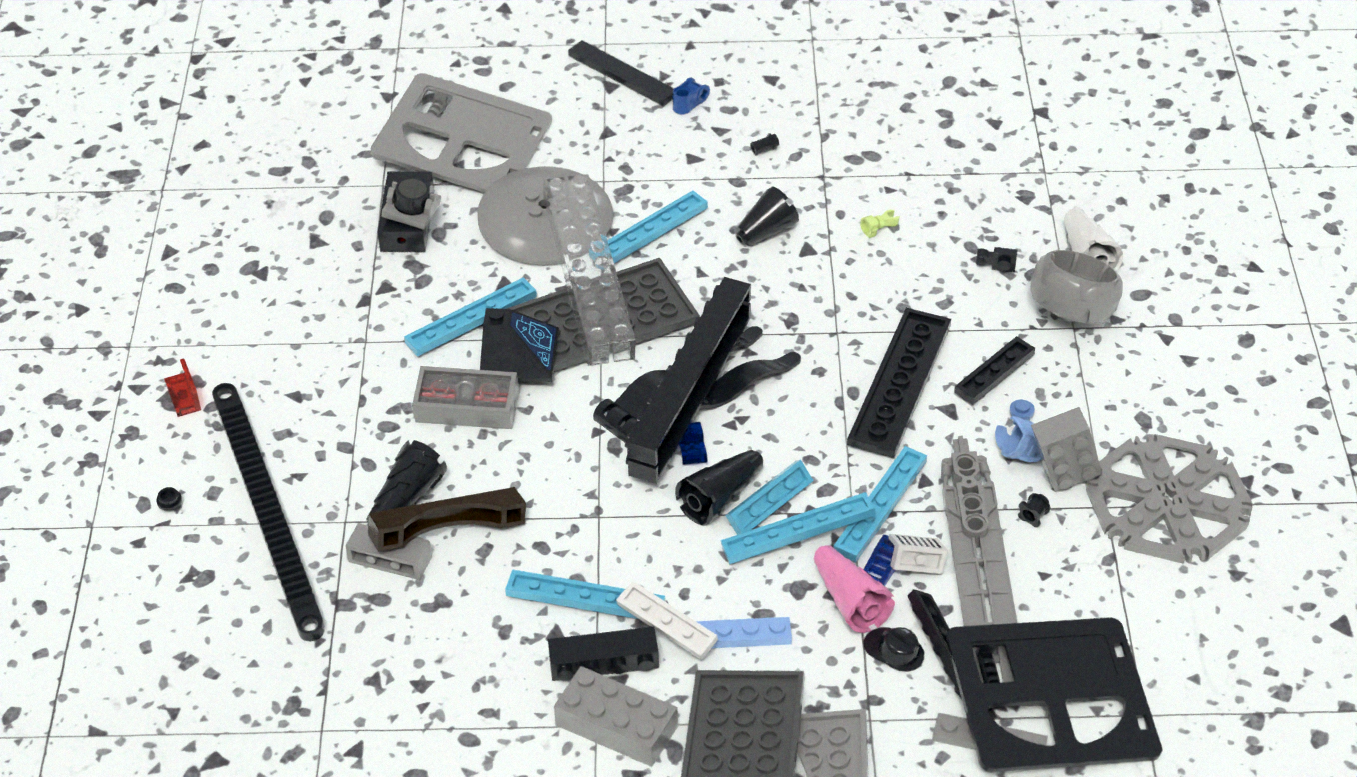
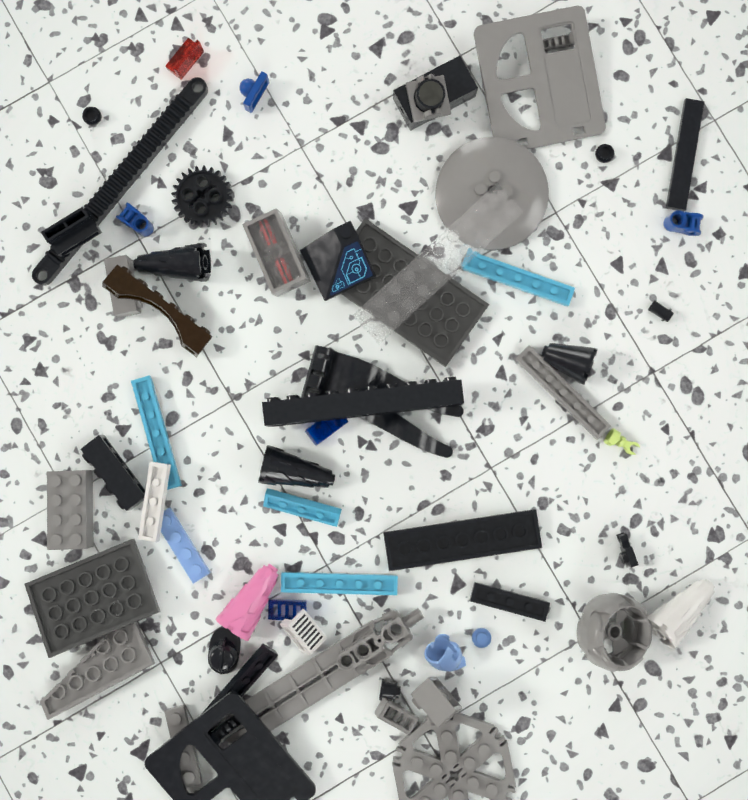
camera: 60 degrees right, 40 degrees up
(272, 347) = (253, 90): none -> blue tile
(290, 557) = (71, 232): none -> black piece
(325, 507) = (133, 219): none -> blue piece
(329, 442) = (213, 209): none -> black gear
(468, 317) = (359, 205): medium azure plate -> none
(573, 121) = (604, 153): none -> black plate
(794, 242) = (562, 392): none -> light grey plate
(798, 528) = (282, 543): medium azure plate -> none
(1073, 520) = (383, 707): none -> light grey slope

